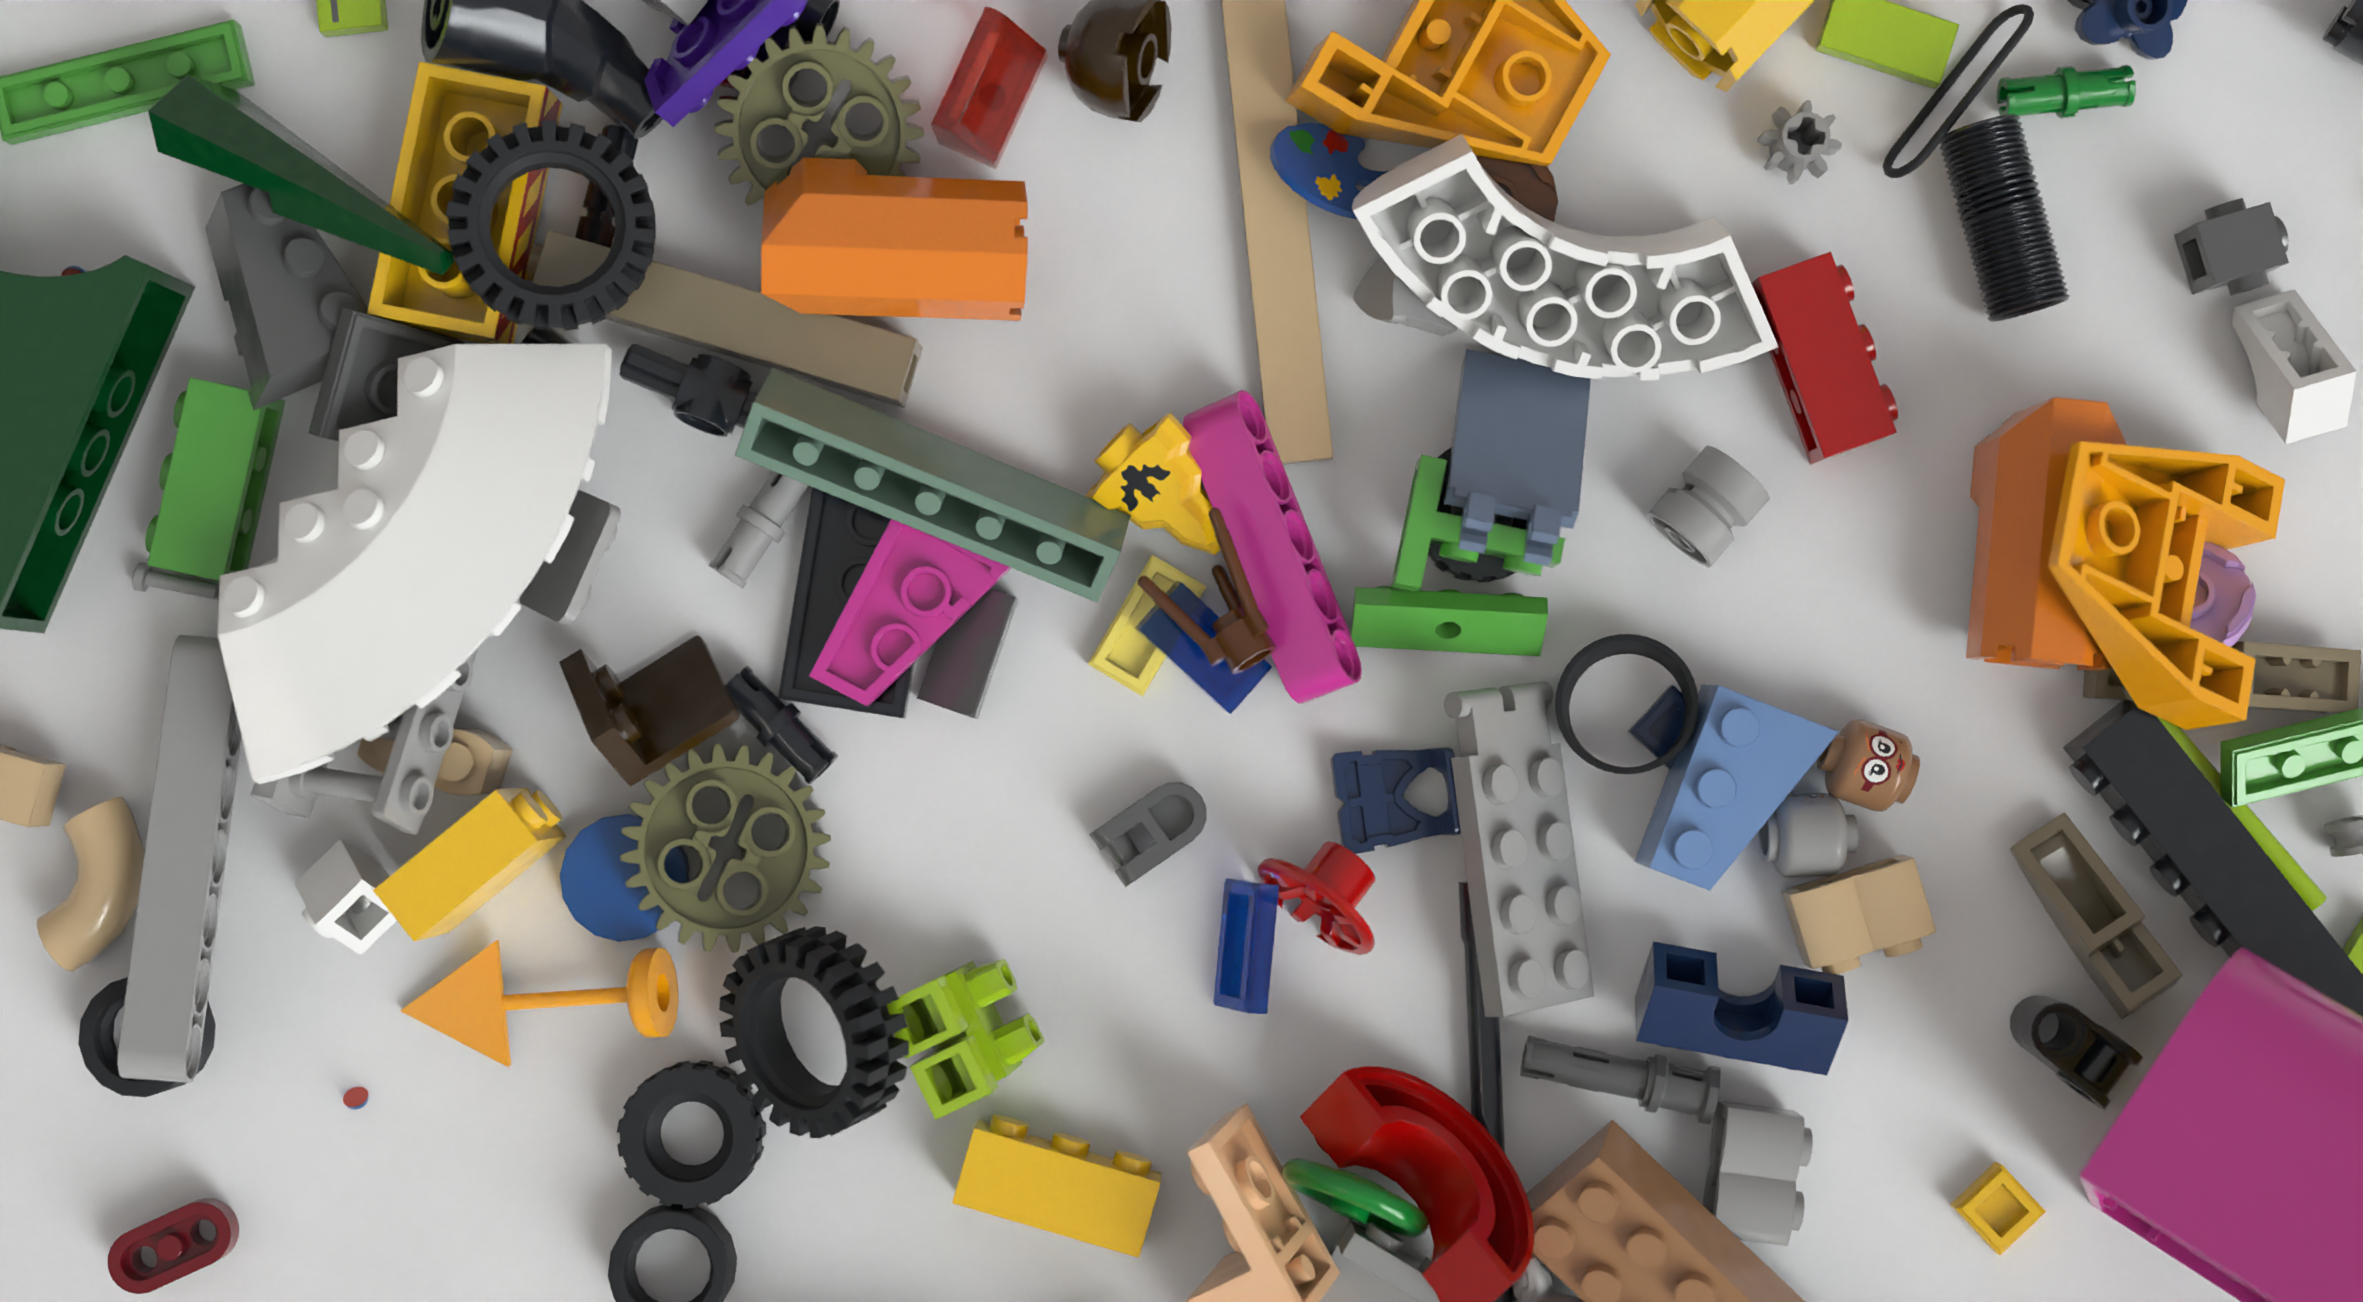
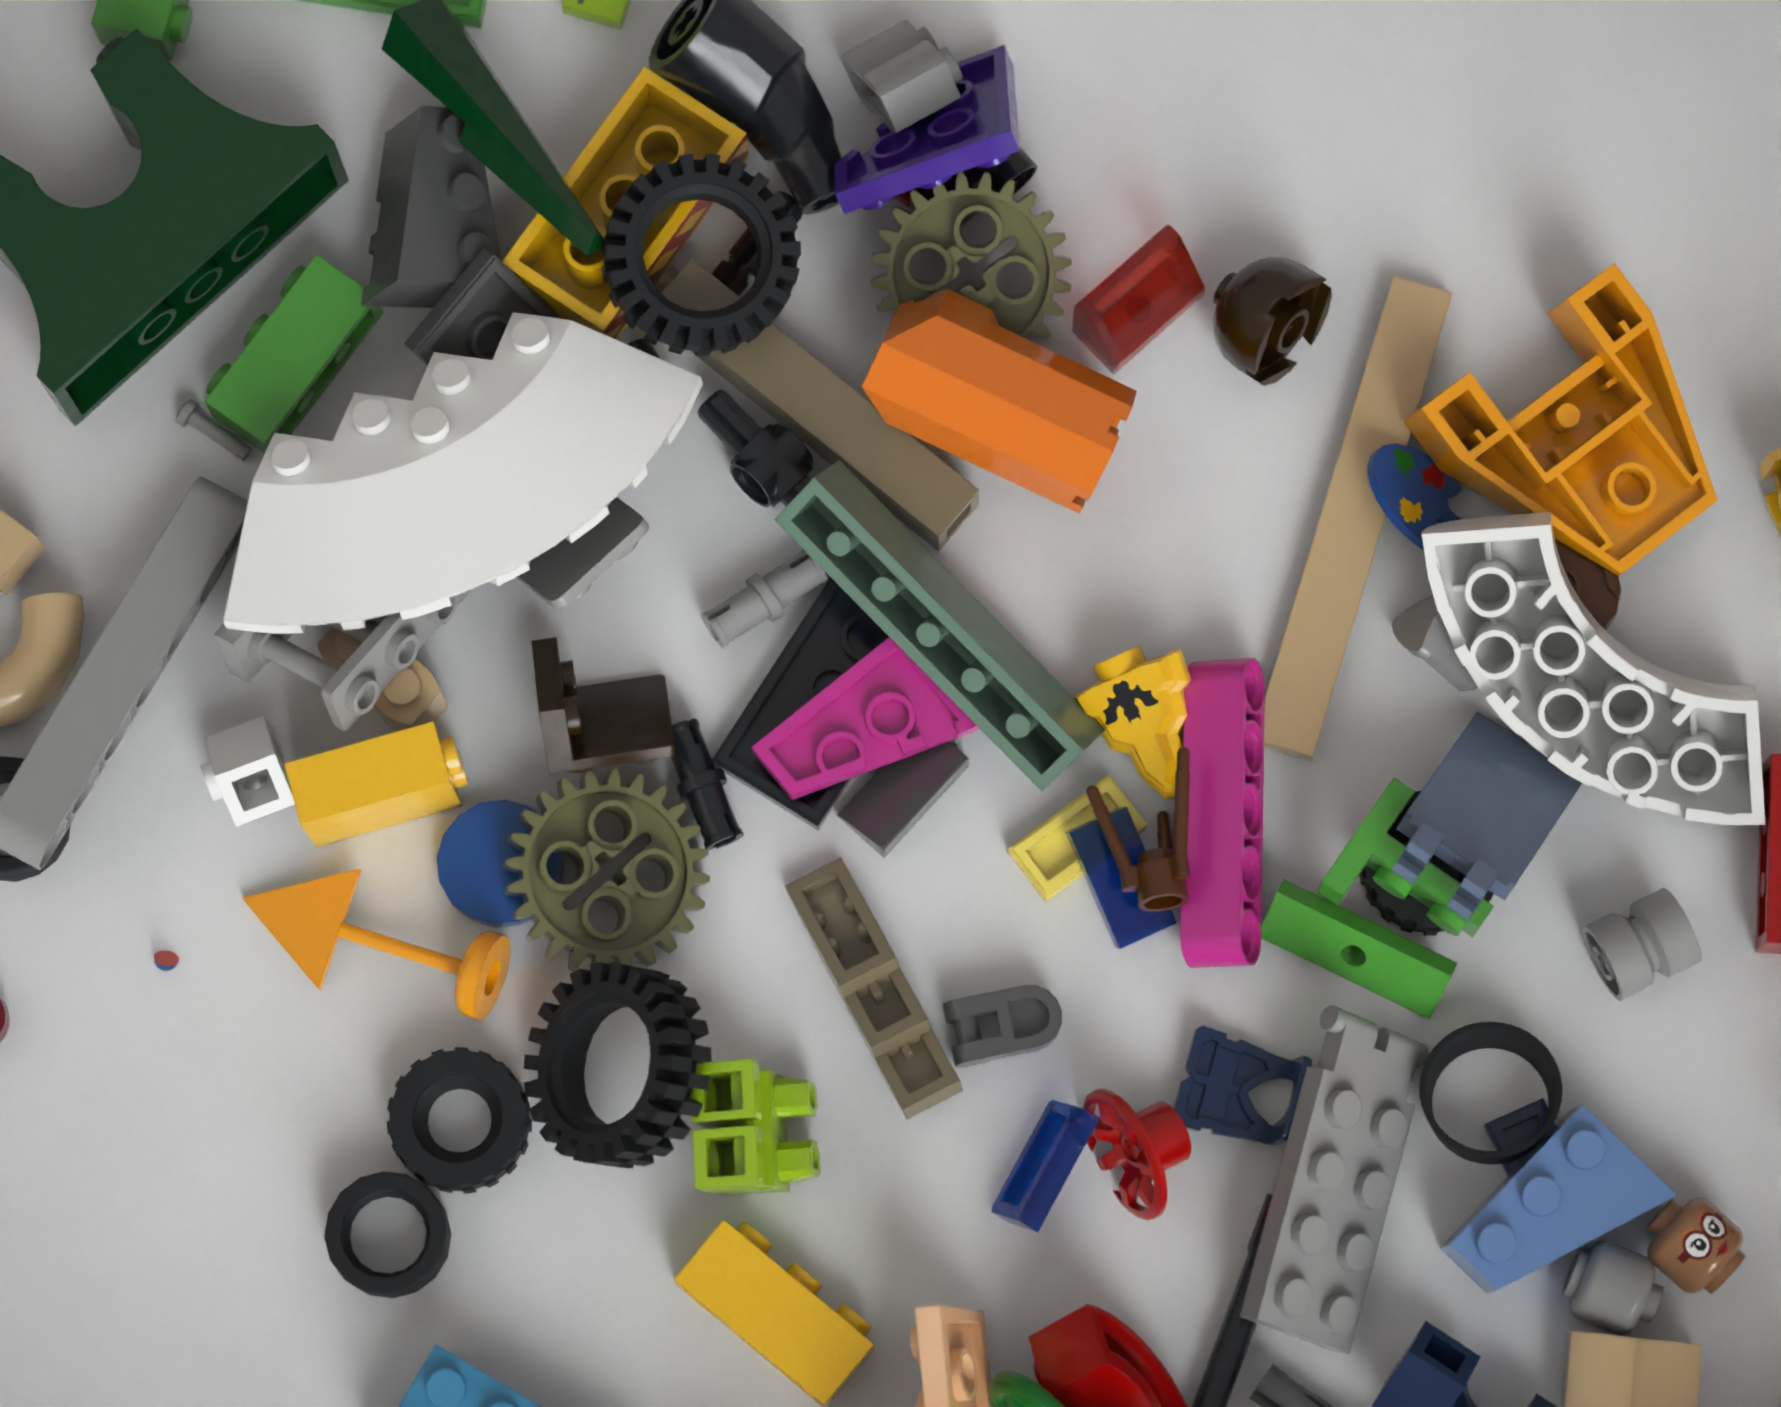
camera: 20 degrees right, 10 degrees down
(1019, 847) = (874, 988): none -> dark tan slope

